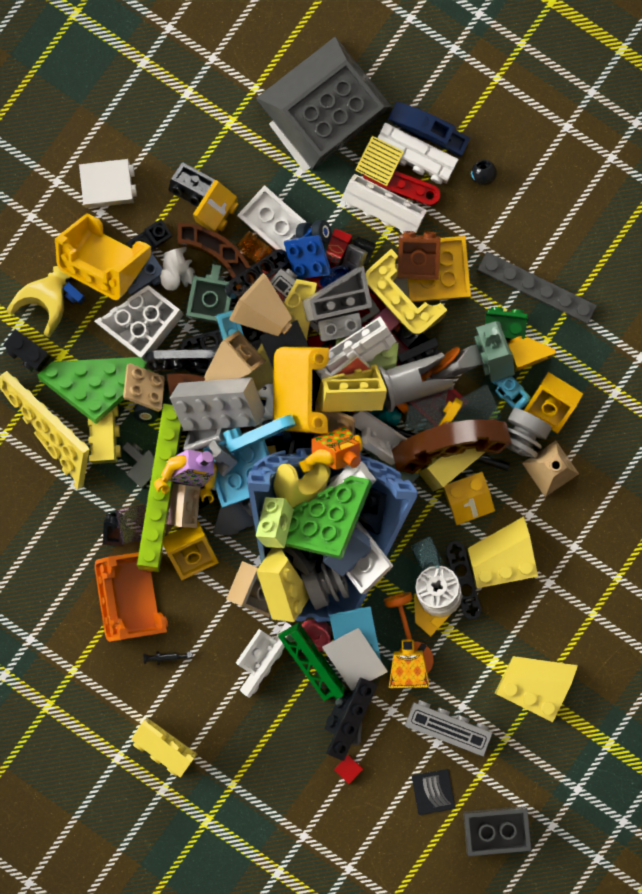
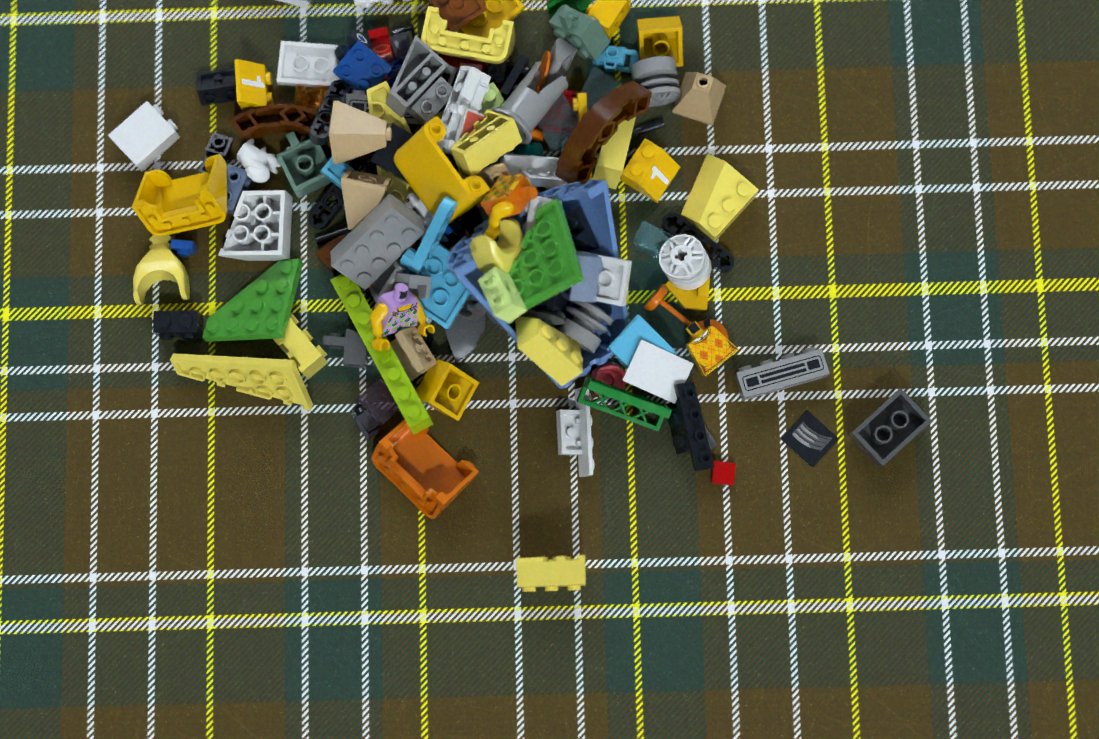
camera: 35 degrees left, 5 degrees down
(144, 389) = (309, 281): tan plate -> none
(164, 359) = (323, 234): black beam -> none
(165, 657) = (495, 495): black piece -> none
(248, 591) = (525, 381): tan slope -> none
(537, 685) = (827, 284): light yellow wedge -> none

